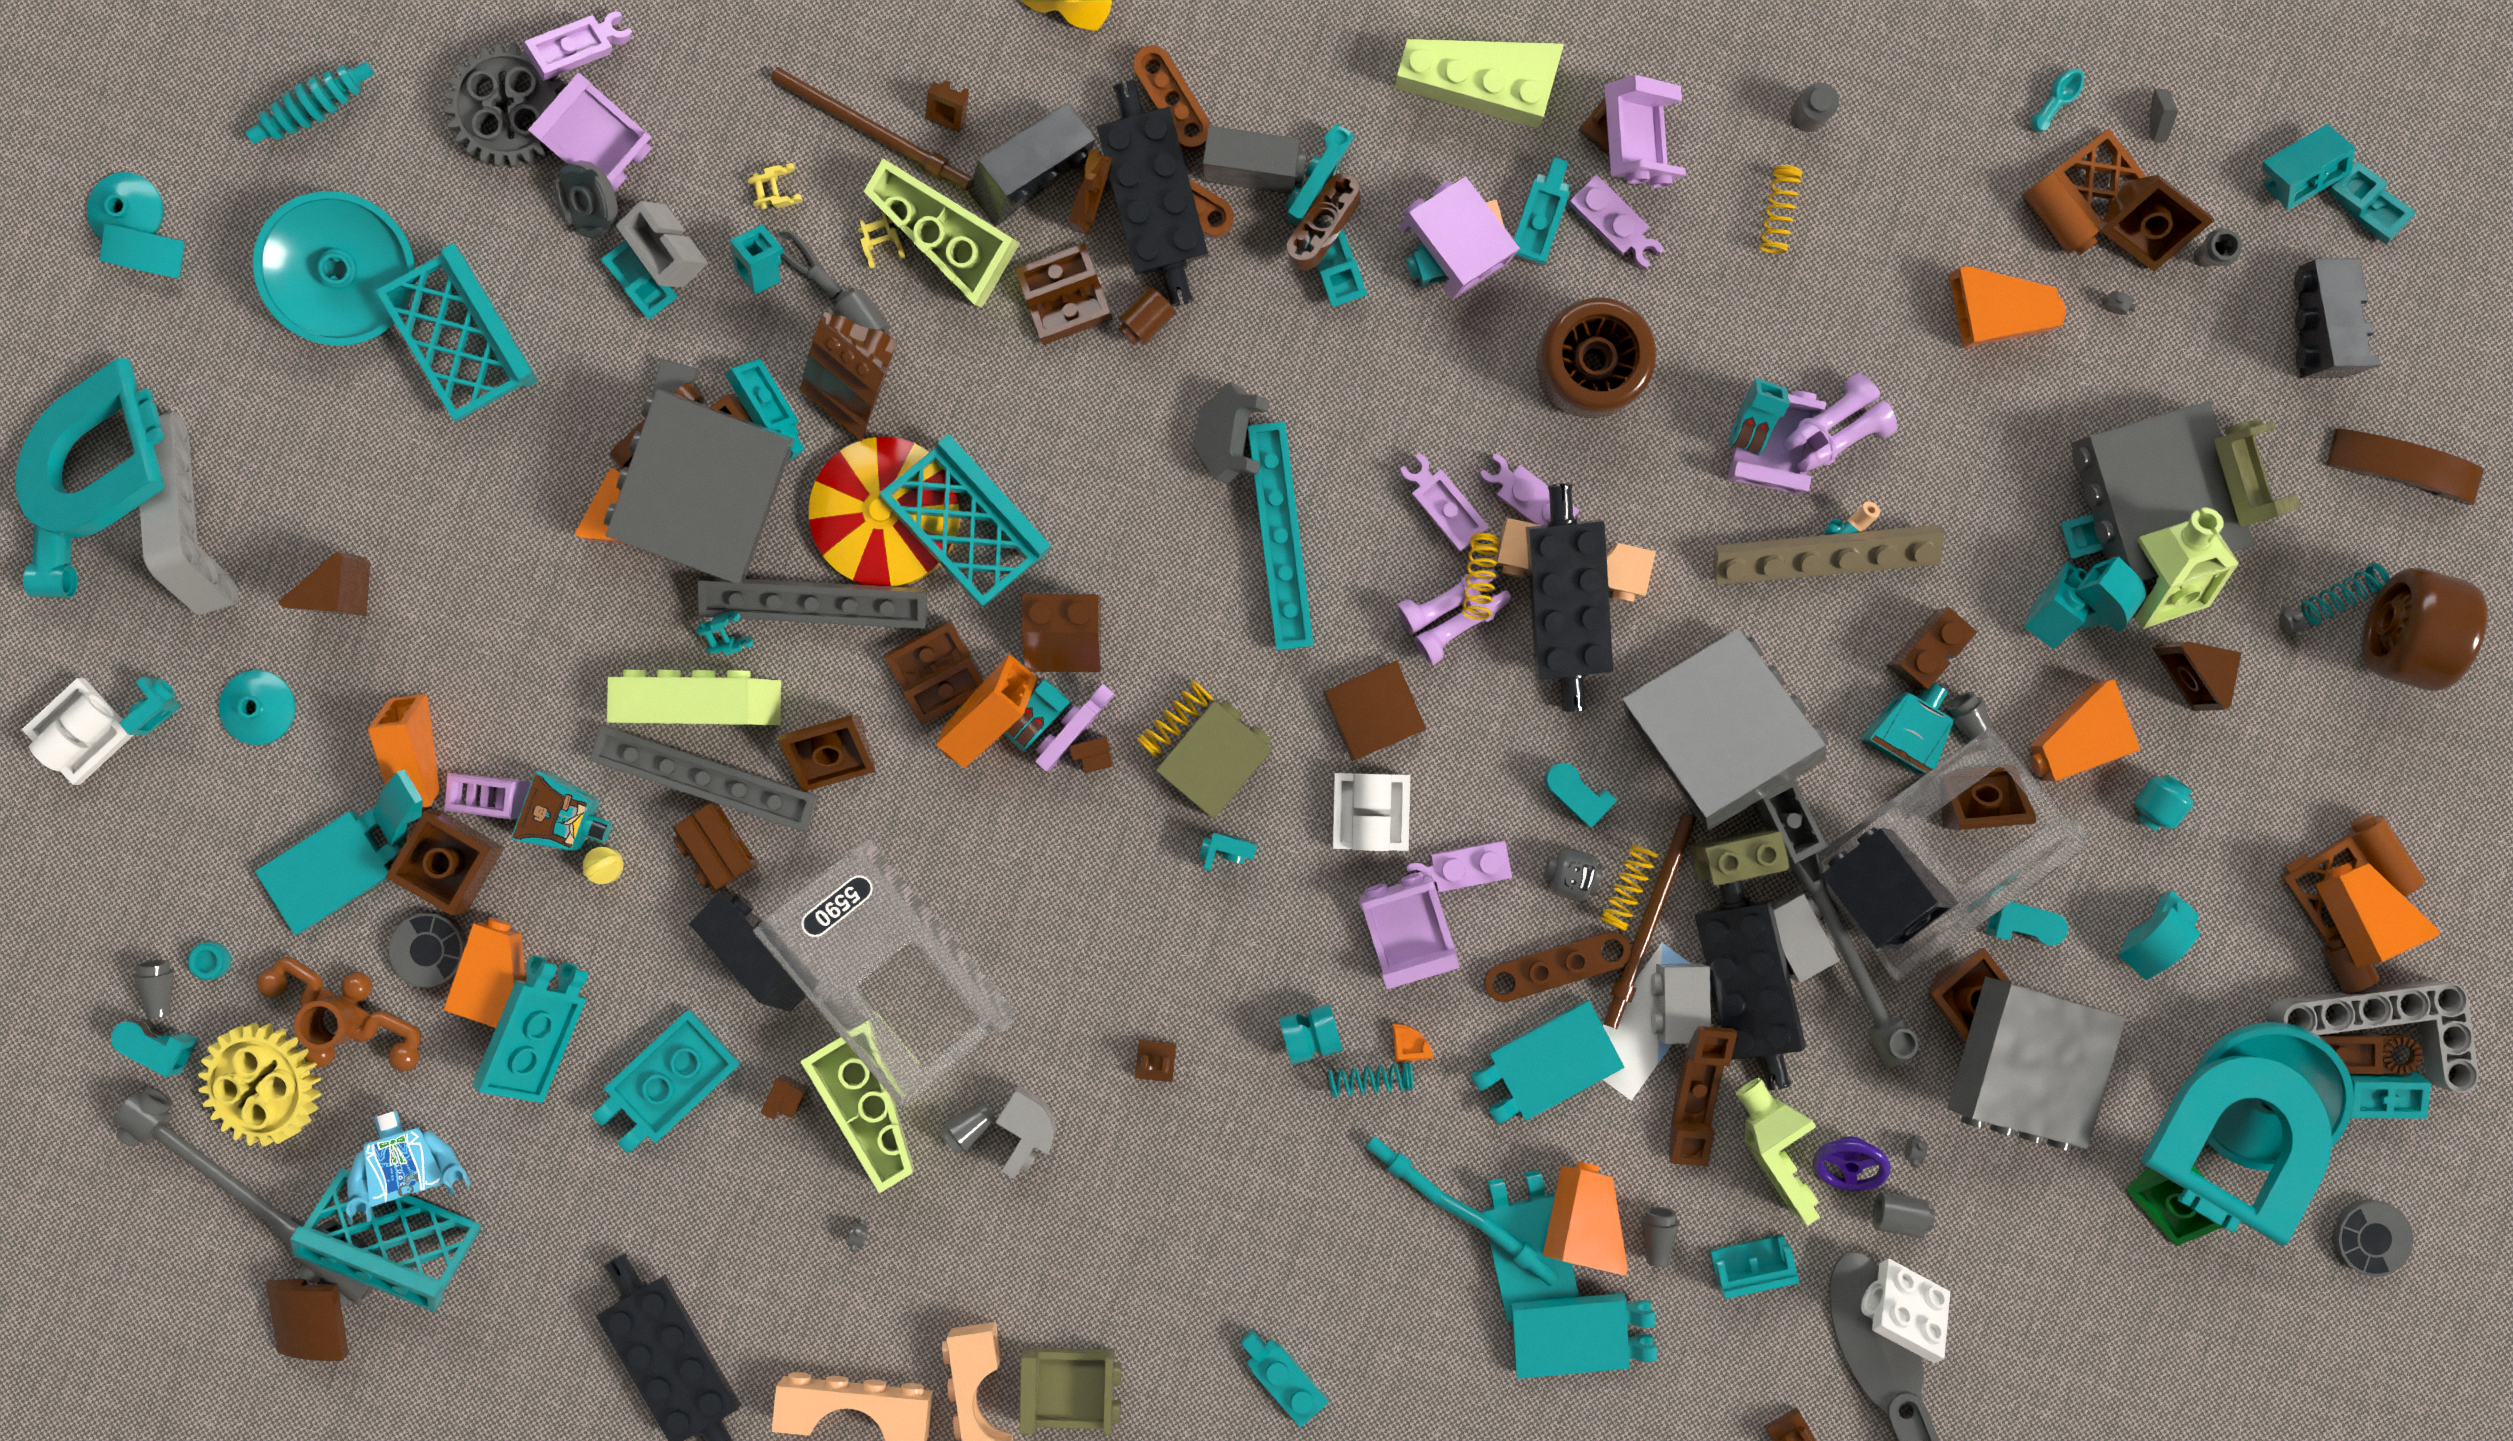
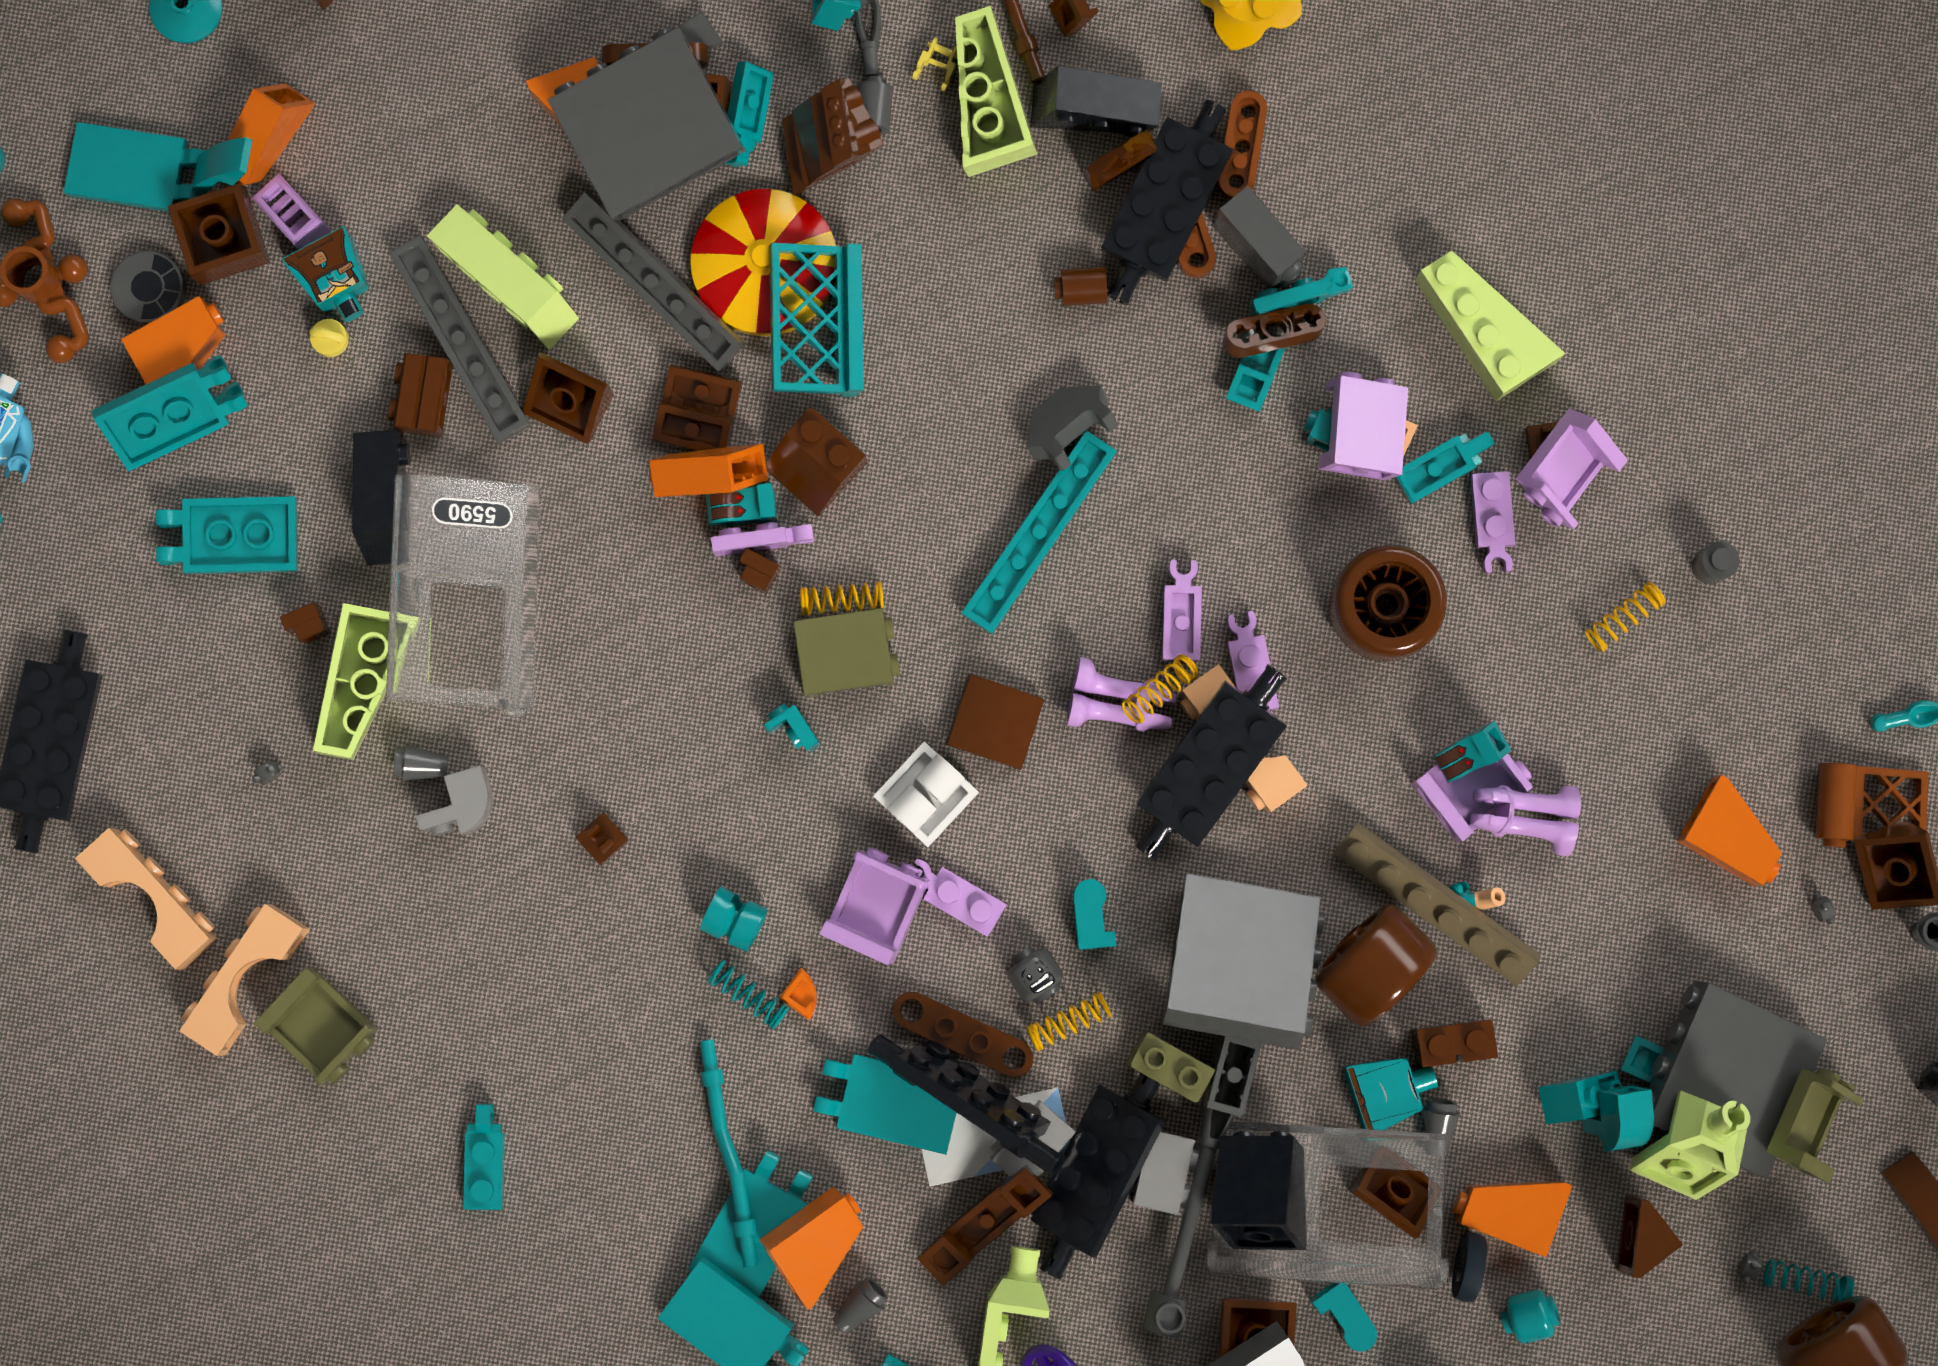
camera: 40 degrees right, 5 degrees down
(727, 644) = (563, 258): teal piece -> none
(1063, 294) = (1036, 218): reddish brown slope -> none
(1612, 1012) = (973, 1097): none -> black plate
(1623, 989) = (1085, 1049): reddish brown bar -> none
(1828, 643) = (1376, 965): none -> reddish brown wheel
(2089, 807) = (1469, 1267): none -> black bush

